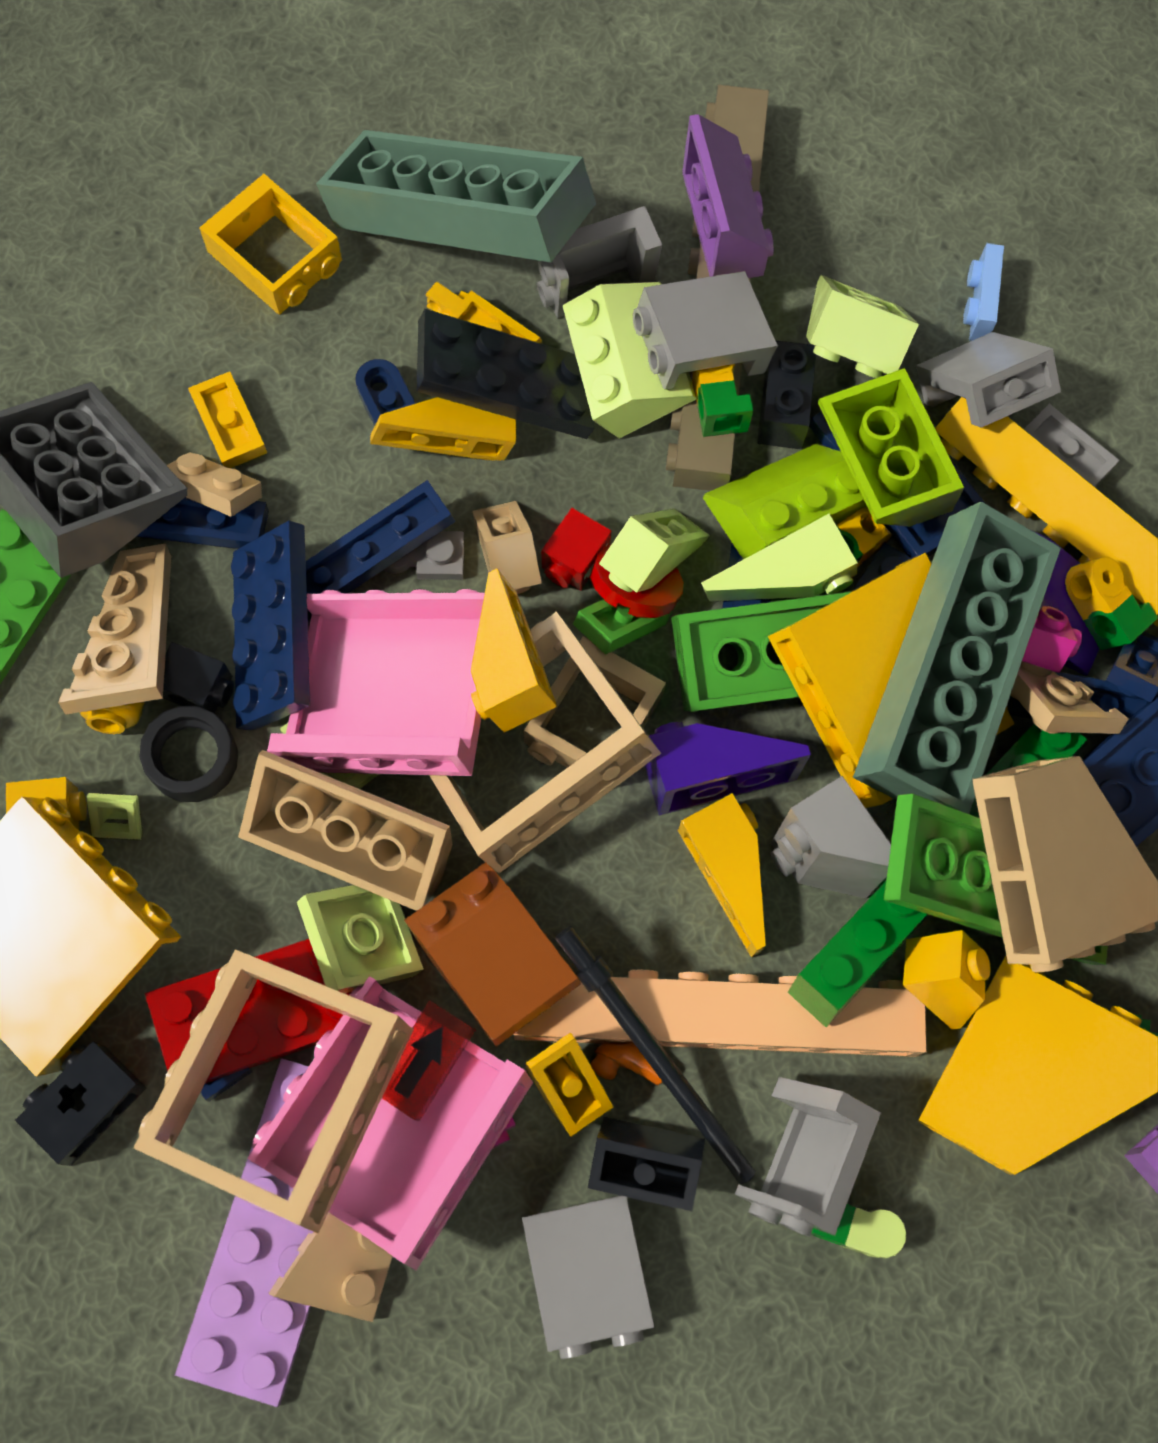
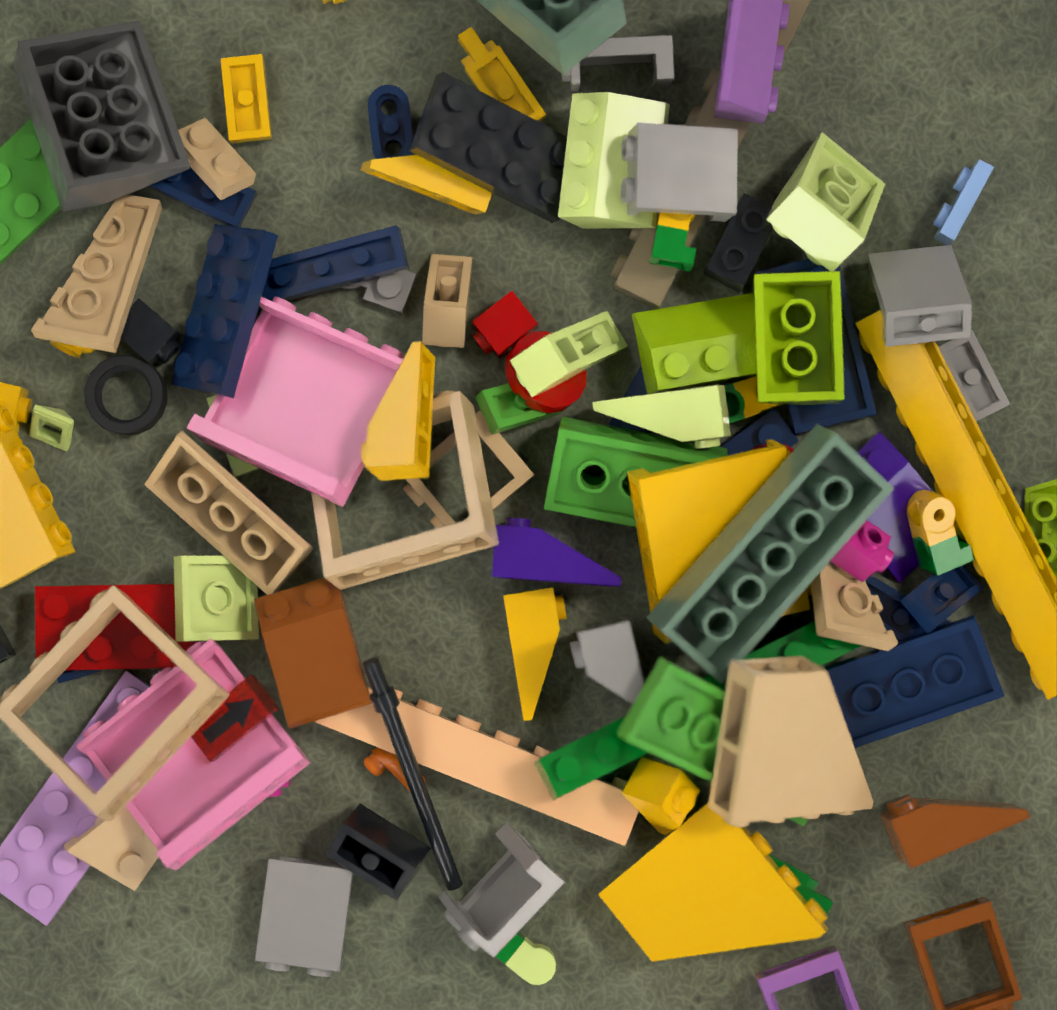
camera: 25 degrees right, 15 degrees up
(569, 1084) = (338, 773): yellow slope -> none

